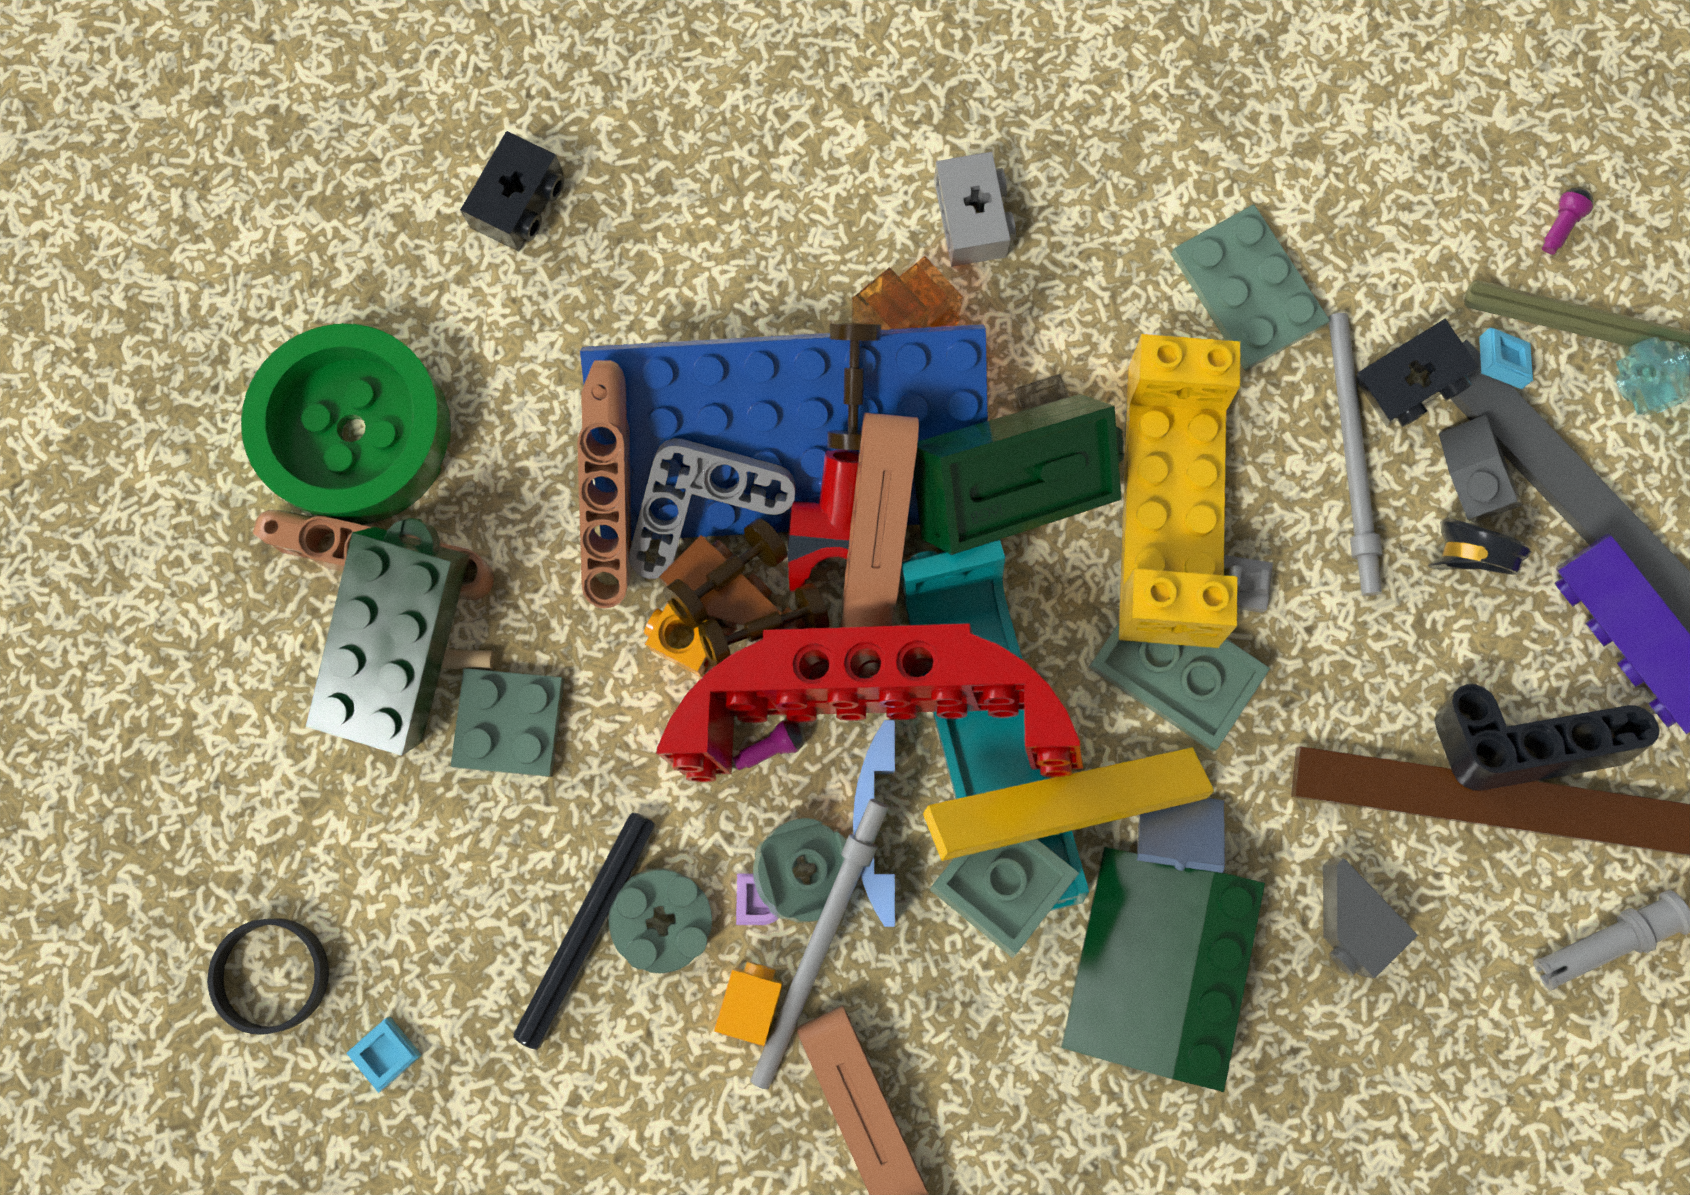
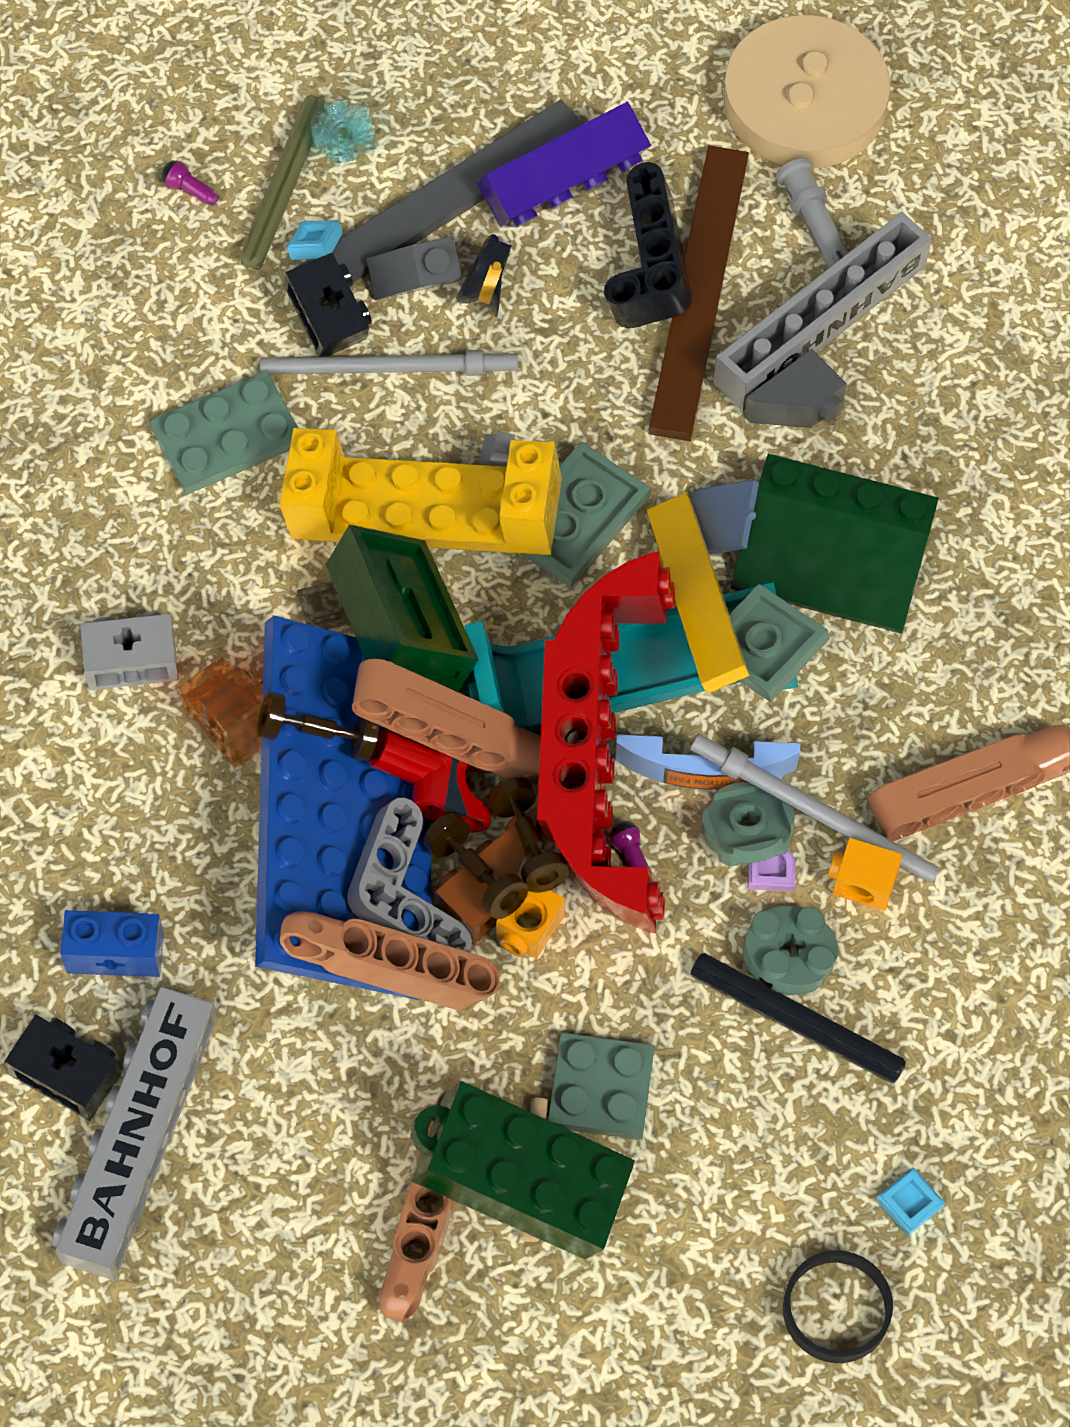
camera: 90 degrees left, 15 degrees down
(304, 400) = (297, 1177): green brick -> none
(447, 266) = (136, 1133): none -> light grey brick
(641, 223) = (112, 943): none -> blue brick
(1482, 953) = (823, 308): none -> light grey brick

